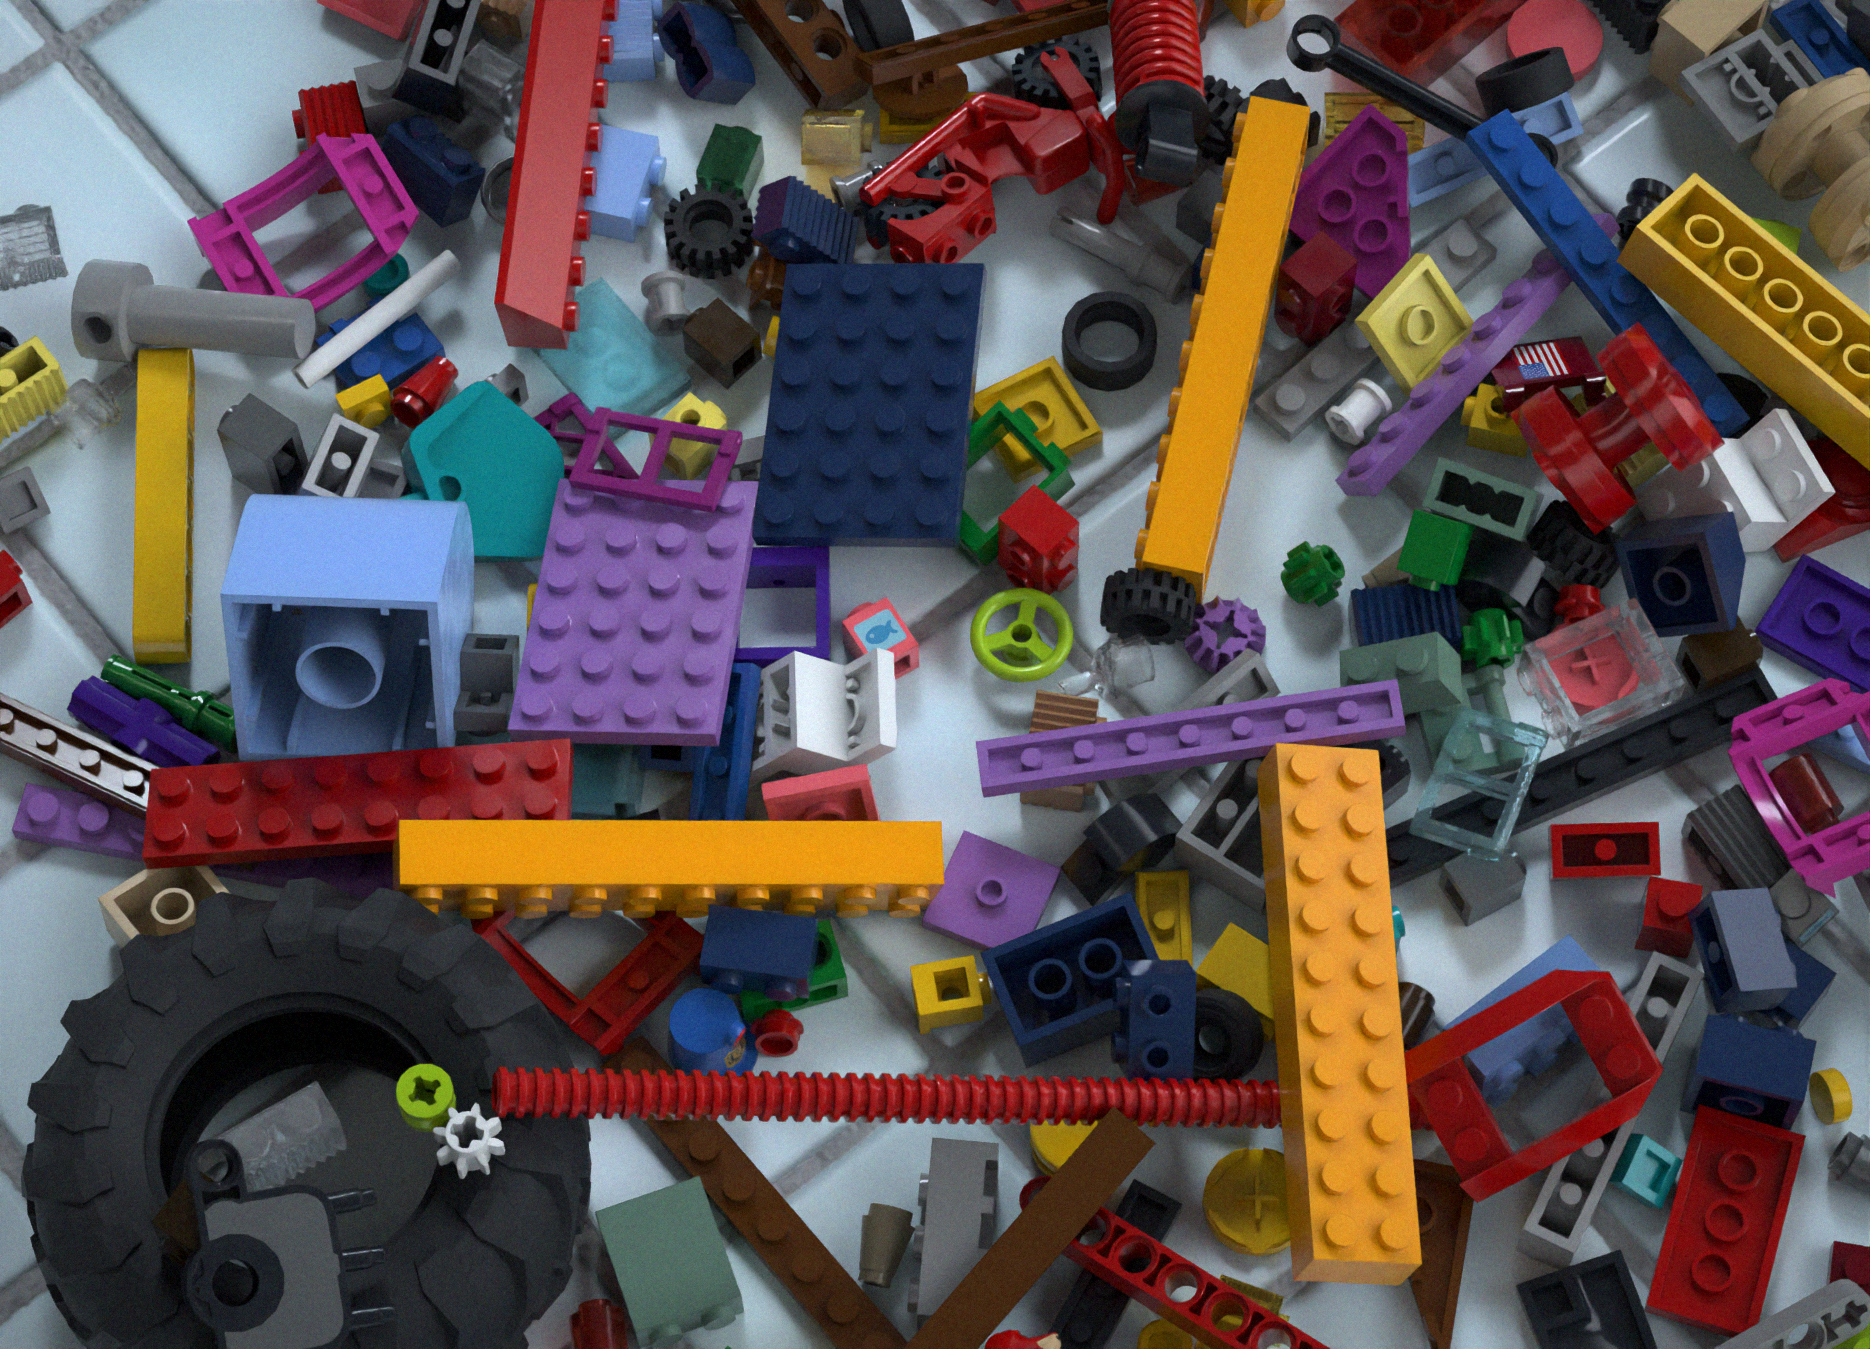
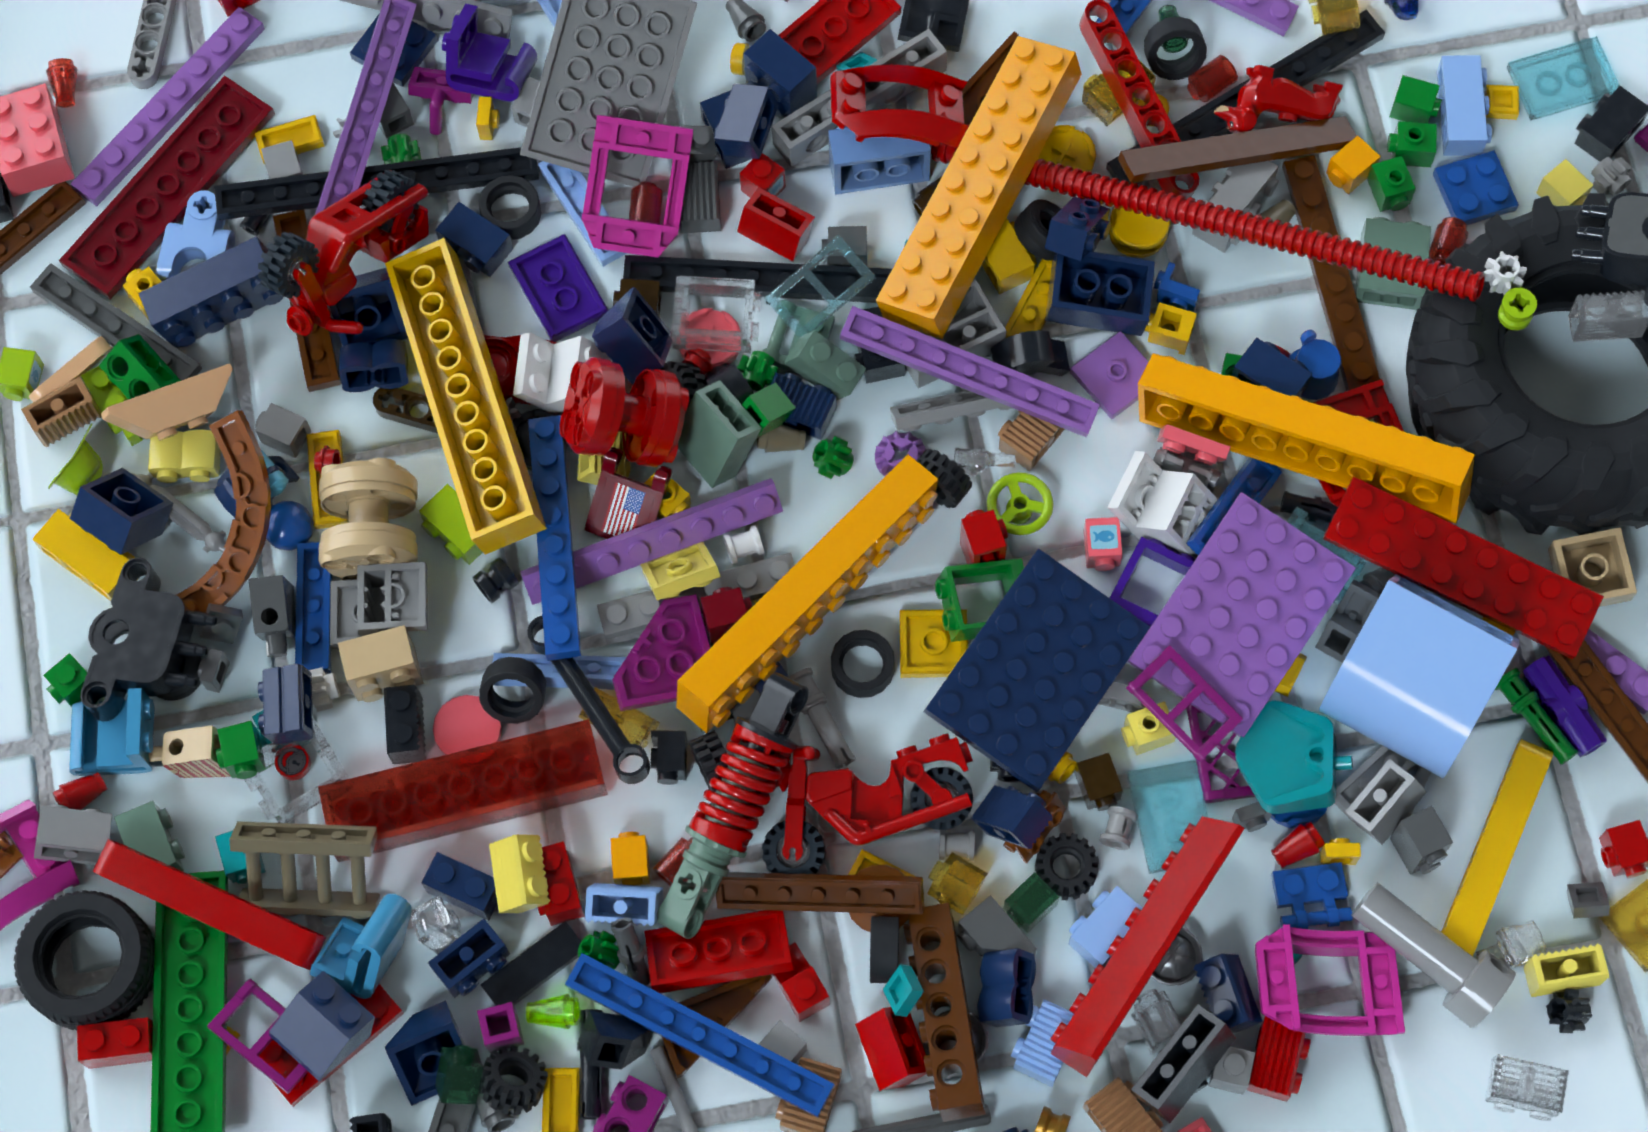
camera: 150 degrees left, 5 degrees up
(376, 319) = (1307, 900): white piece -> none
(759, 103) = (991, 929): none -> dark grey slope
(967, 1048) = (1173, 292): none -> blue bracket

